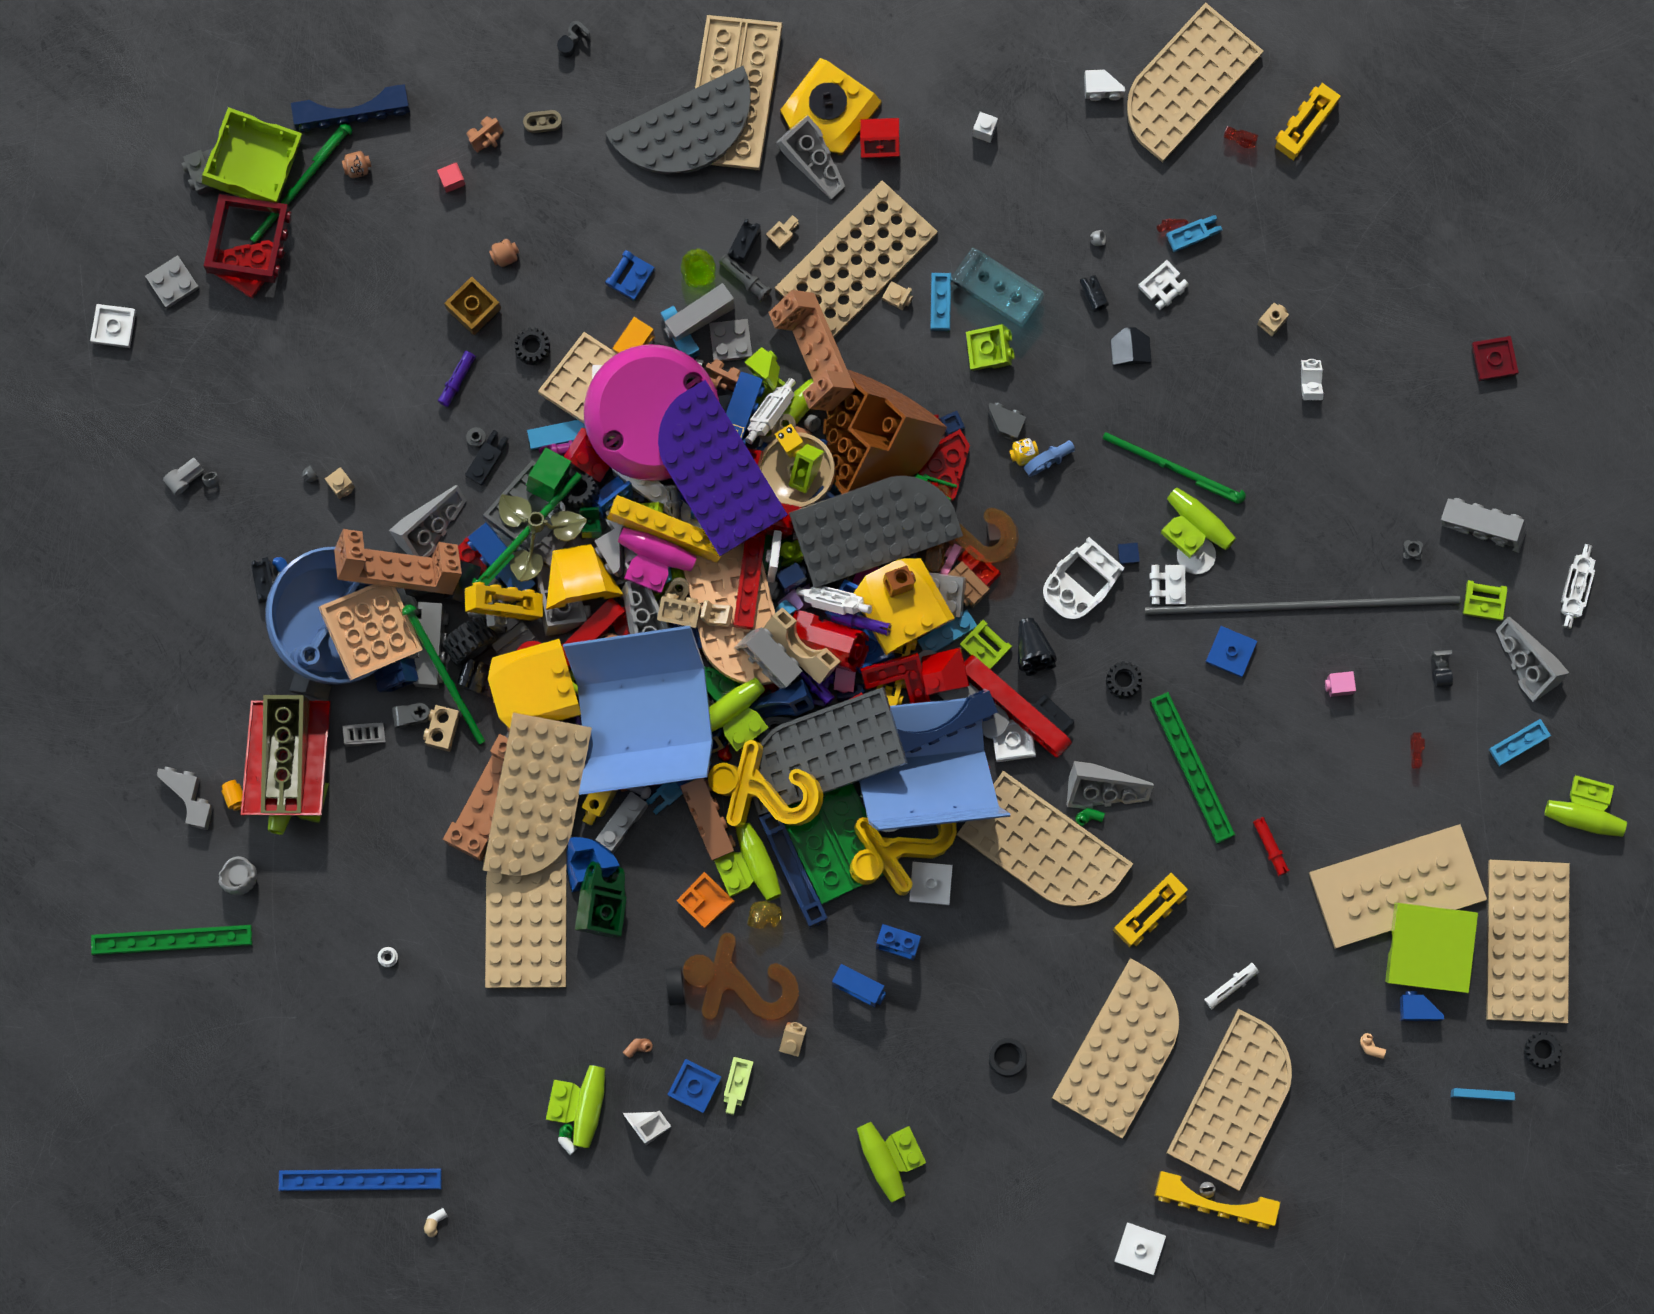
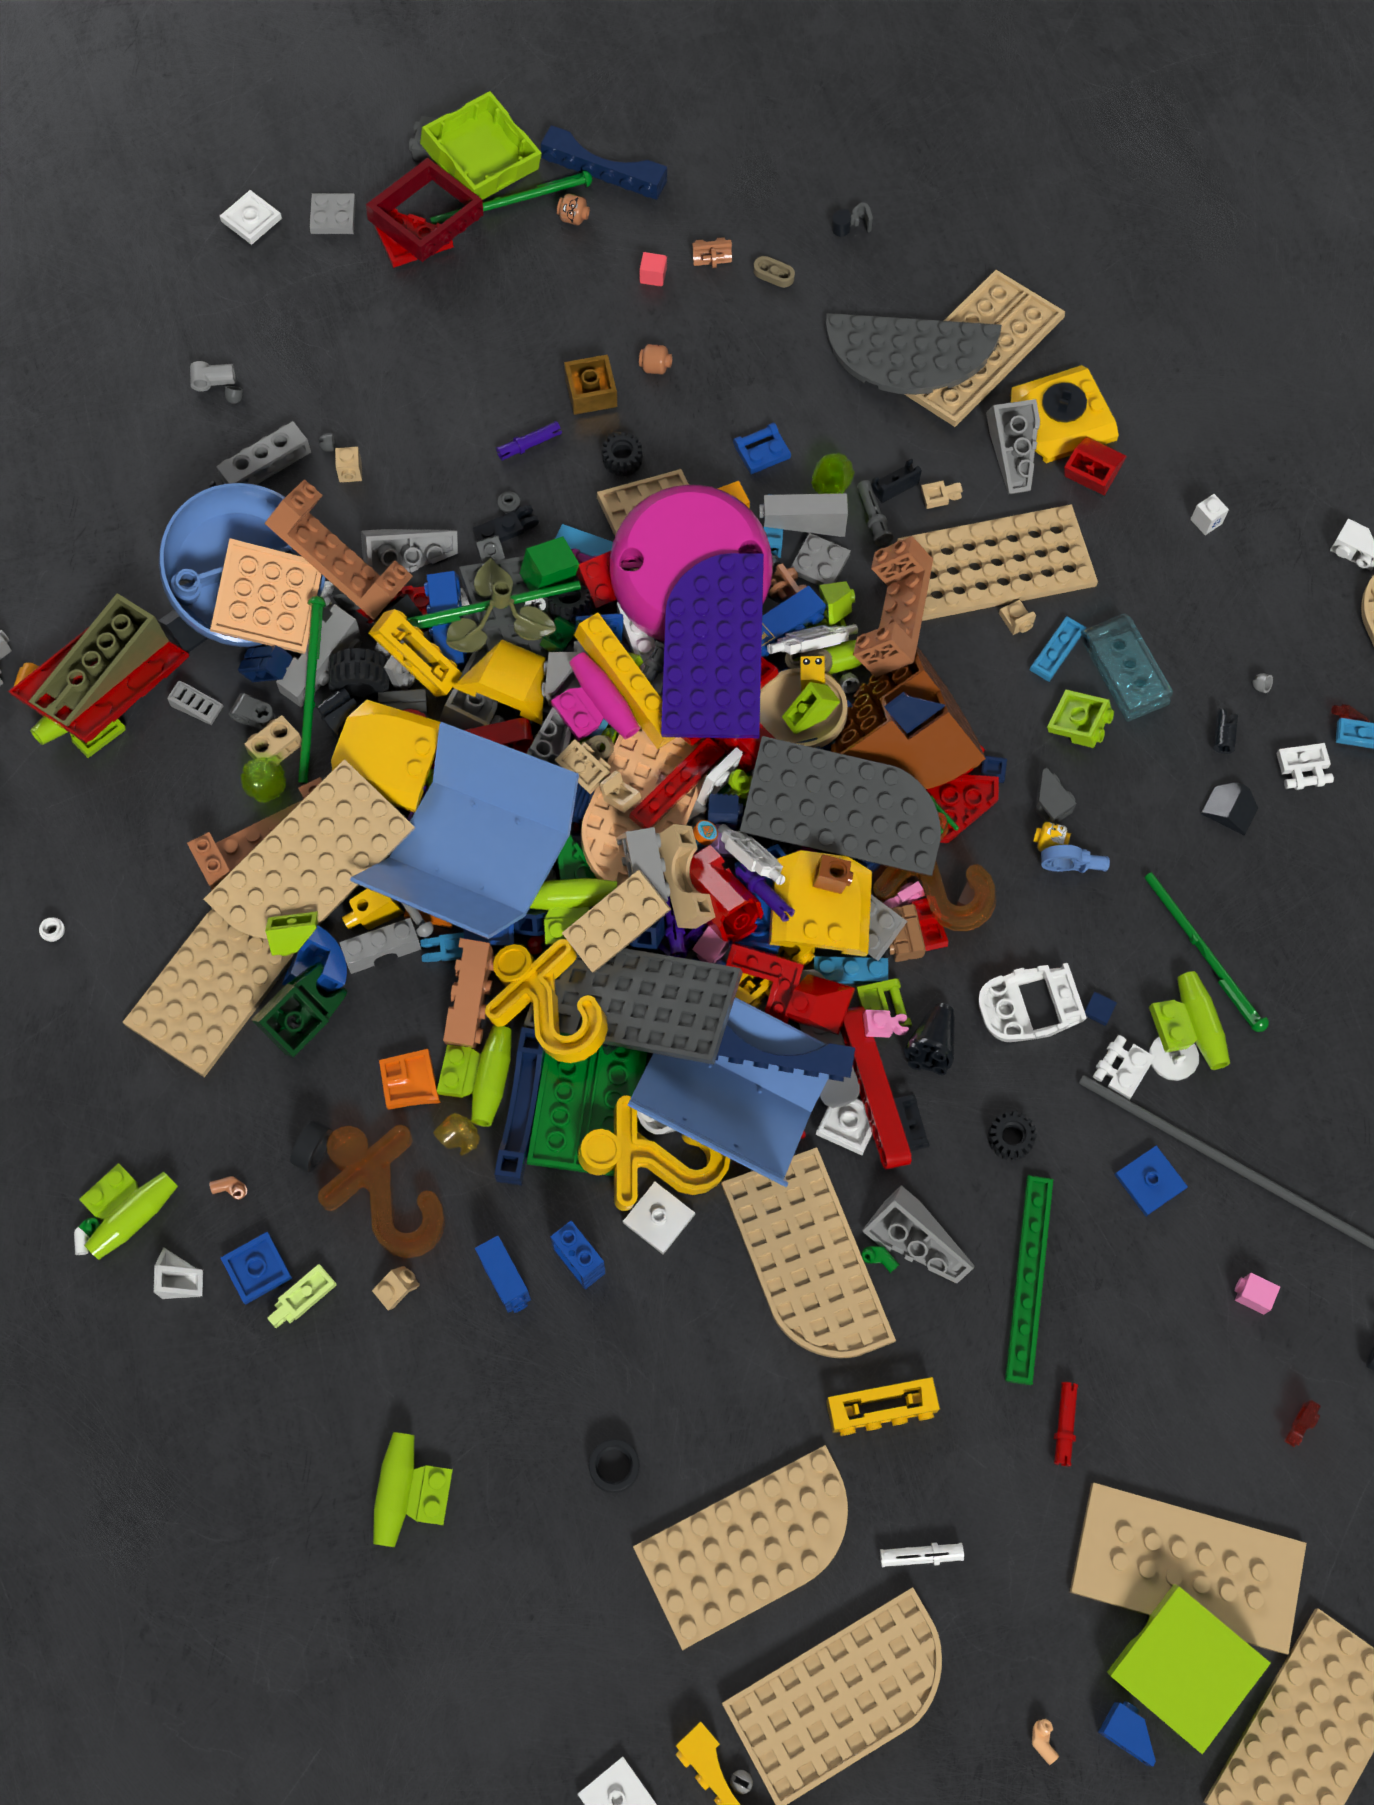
camera: 30 degrees right, 10 degrees down
(277, 488) = (276, 457): none -> light grey brick
(456, 759) = (263, 779): none -> clear neon green hair
(491, 485) = (489, 548): none -> dark grey brick
(560, 853) = (290, 932): none -> lime slope
(777, 707) = (616, 921): none -> tan plate
(789, 602) = (705, 832): none -> tile
(879, 428) = (911, 711): none -> dark blue slope
(992, 660) = (880, 1023): none -> bright pink plate

